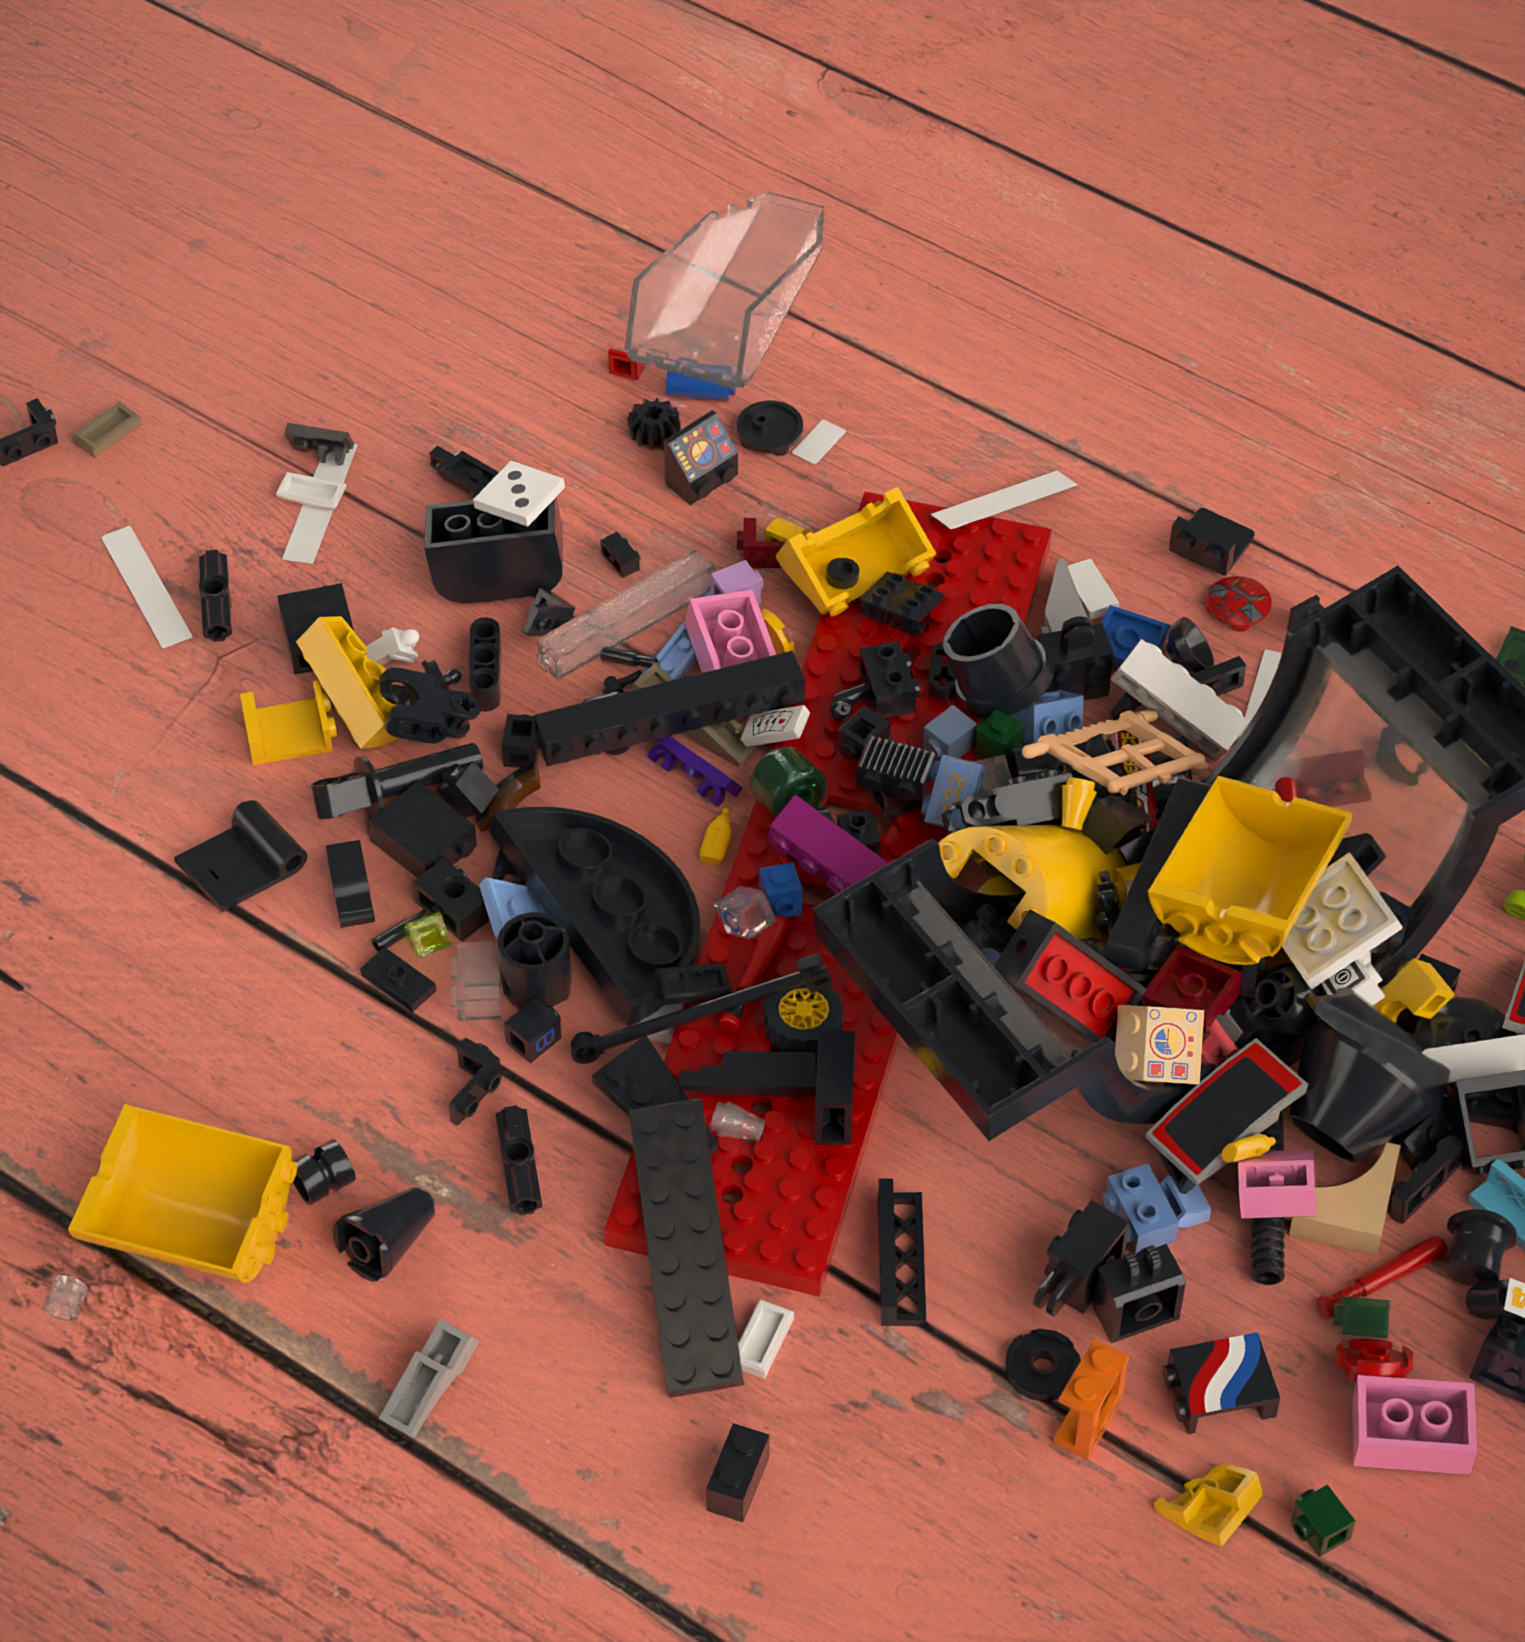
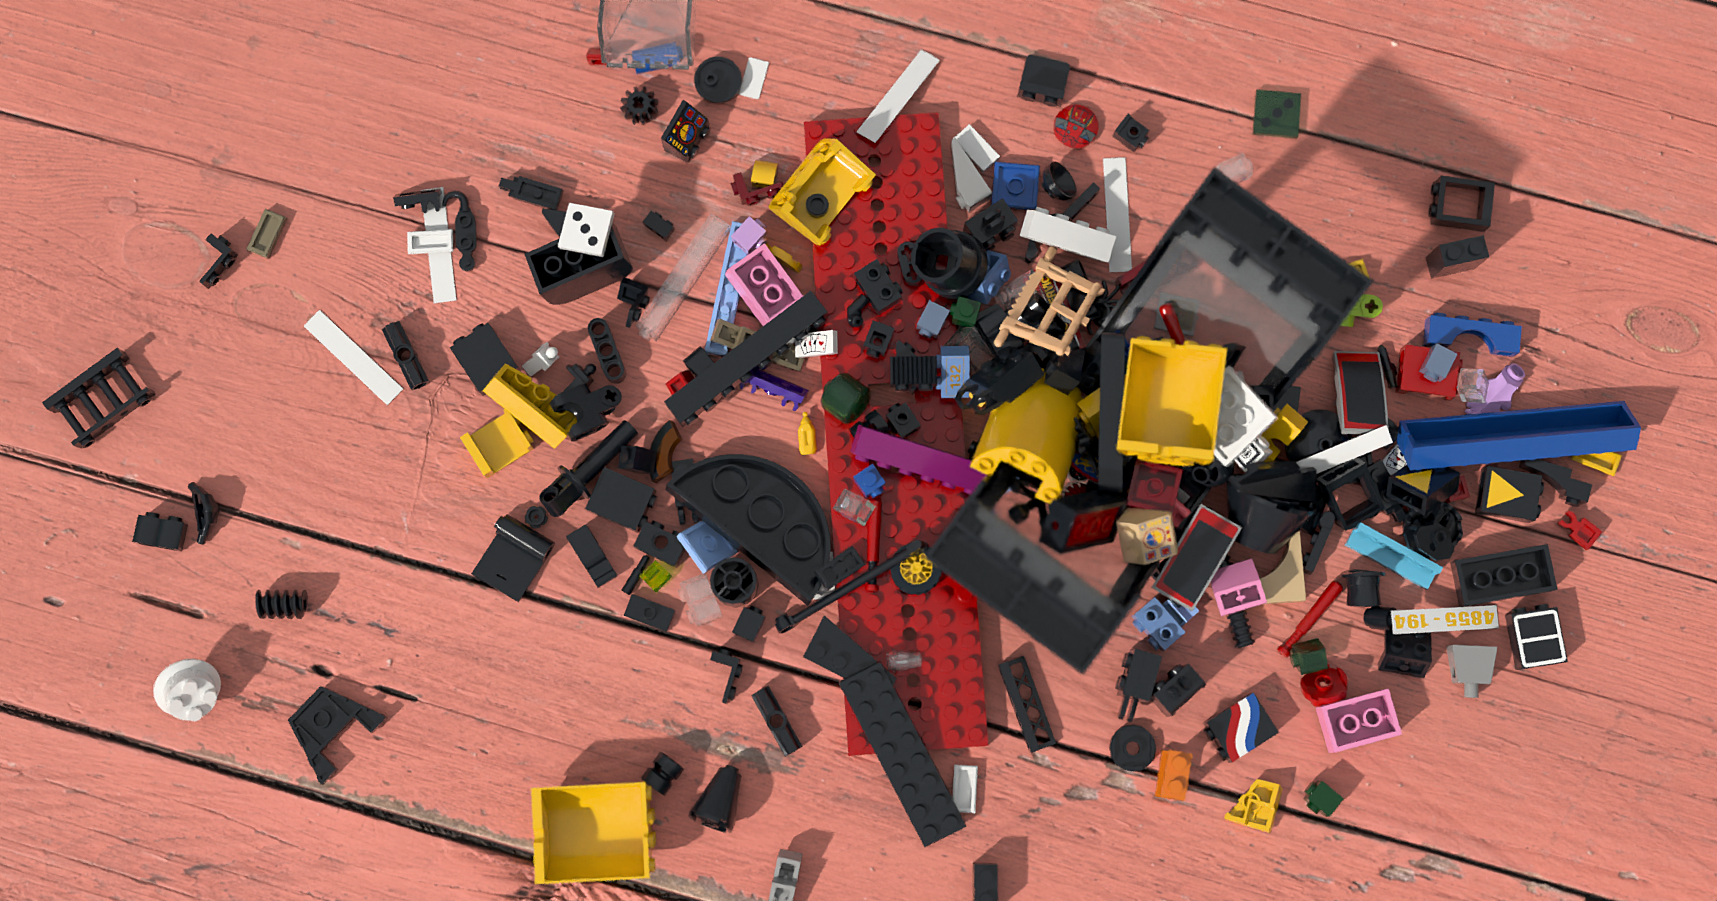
camera: 20 degrees left, 30 degrees up
(294, 815) = (542, 517): none -> black plate
(361, 492) = (464, 230): none -> black piece
(519, 741) = (654, 394): black brick -> none
(611, 682) = (695, 338): black hand -> none
(626, 657) = (697, 312): black pin -> none
(755, 1074) = (902, 621): black piece -> none
(834, 1087) = (956, 620): black brick -> none
(902, 600) = (864, 215): black hinge -> none
(1076, 802) = (1042, 373): yellow cone -> none
(1247, 1148) = (1216, 583): yellow piece -> none

